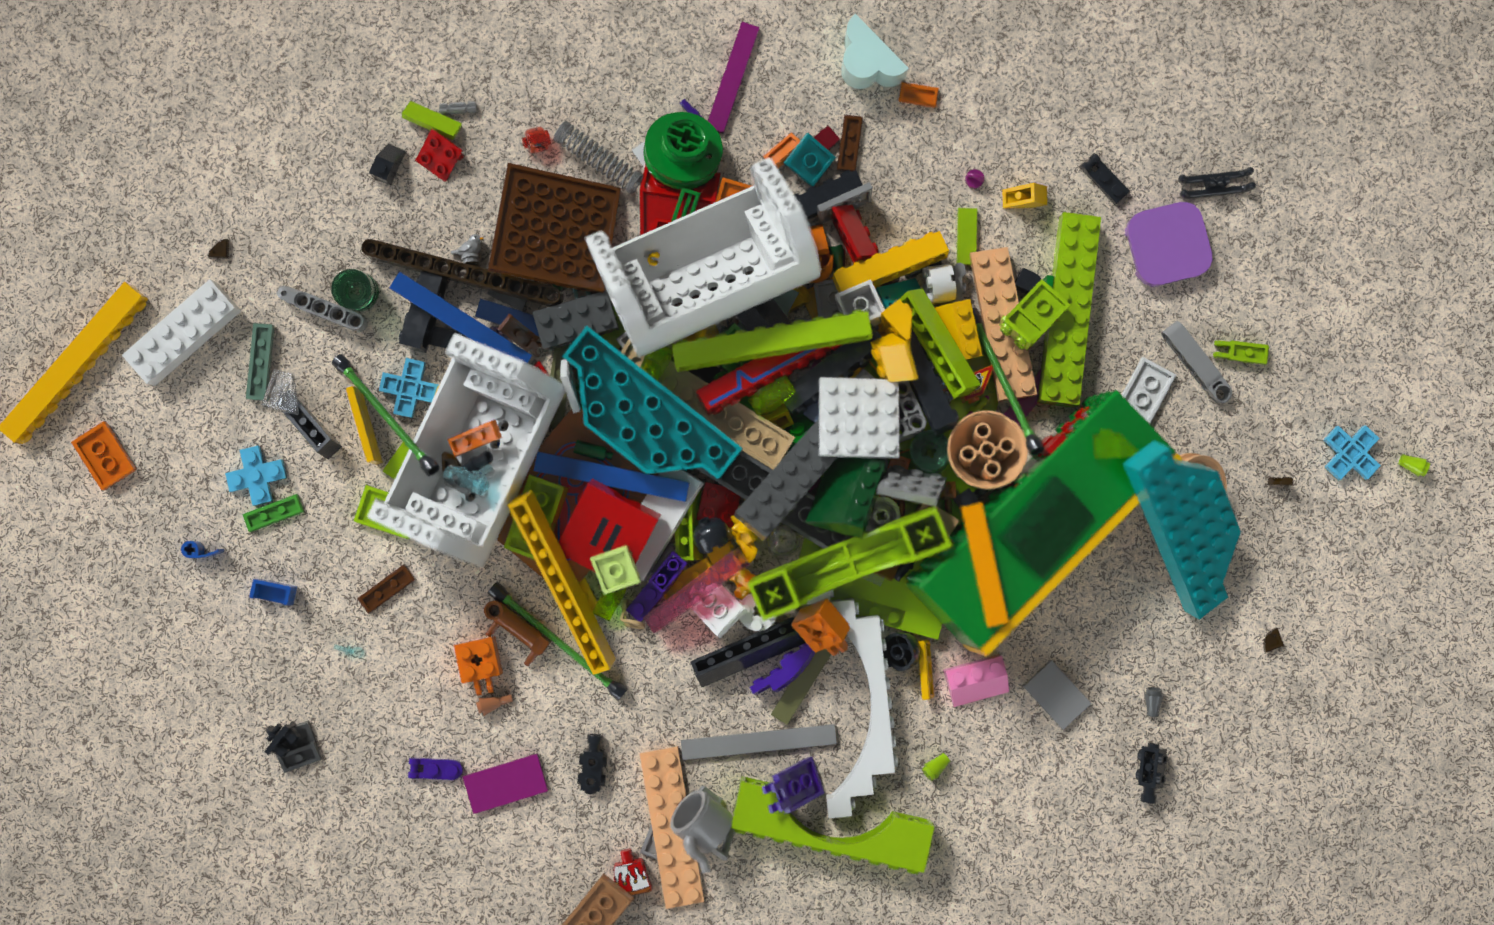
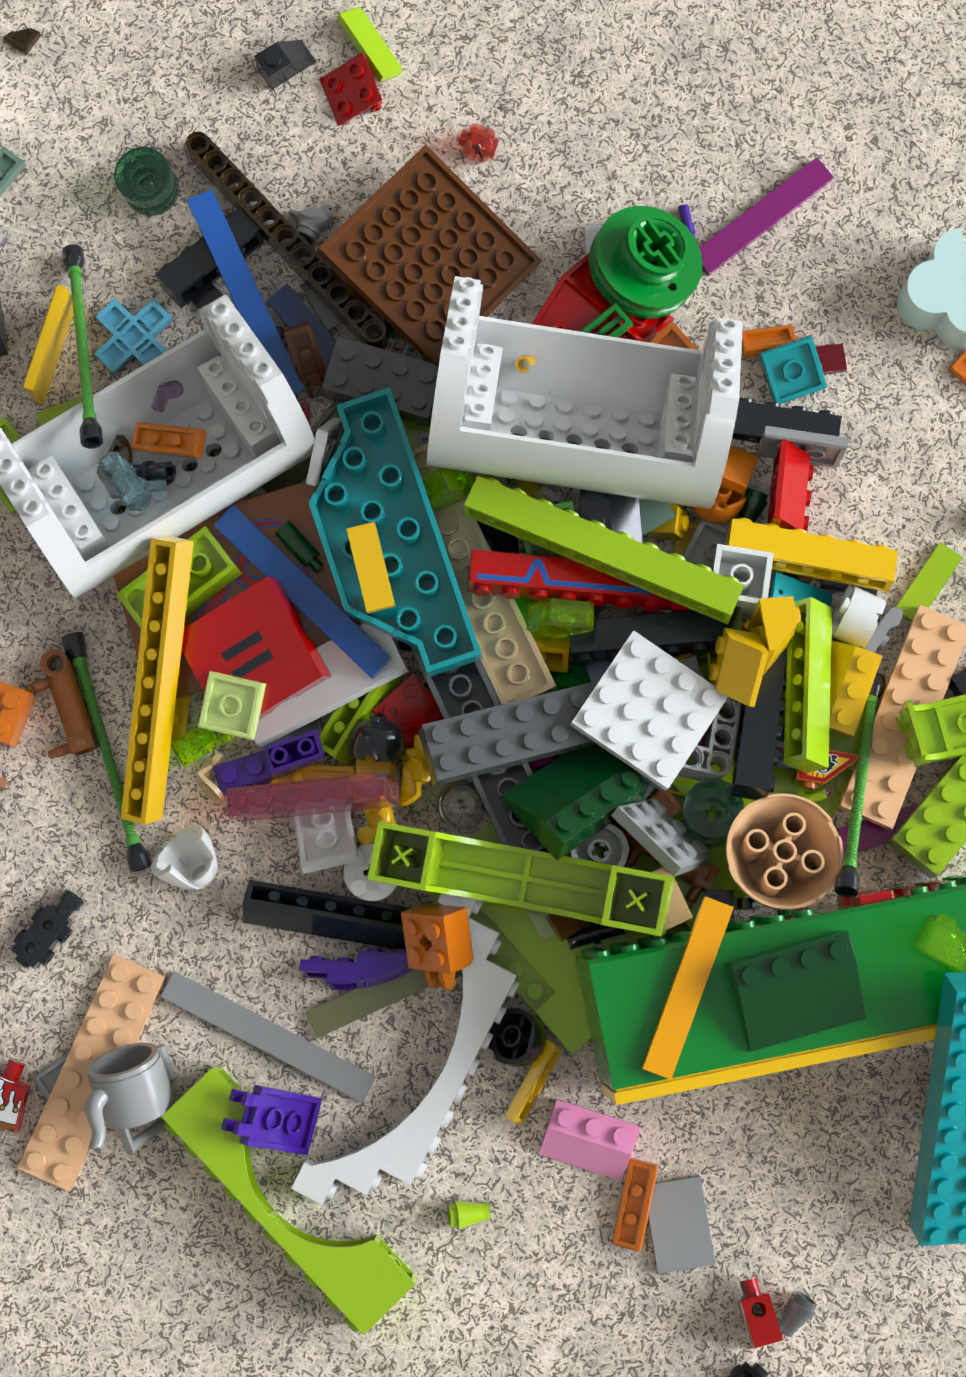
camera: 35 degrees right, 5 degrees down
(295, 296) = (104, 188): light grey piece -> none
(453, 411) = (166, 392): none -> clear purple arm
(458, 108) = (410, 49): light grey axle -> none
(565, 127) = (564, 256): light grey piece -> none
(645, 439) = (370, 567): none -> yellow tile
(646, 673) = (186, 859): none -> white hair
(849, 143) = (855, 381): reddish brown tile -> none
(1026, 699) = (635, 1204): none -> orange tile
(1140, 723) = (762, 1329): none -> red torso

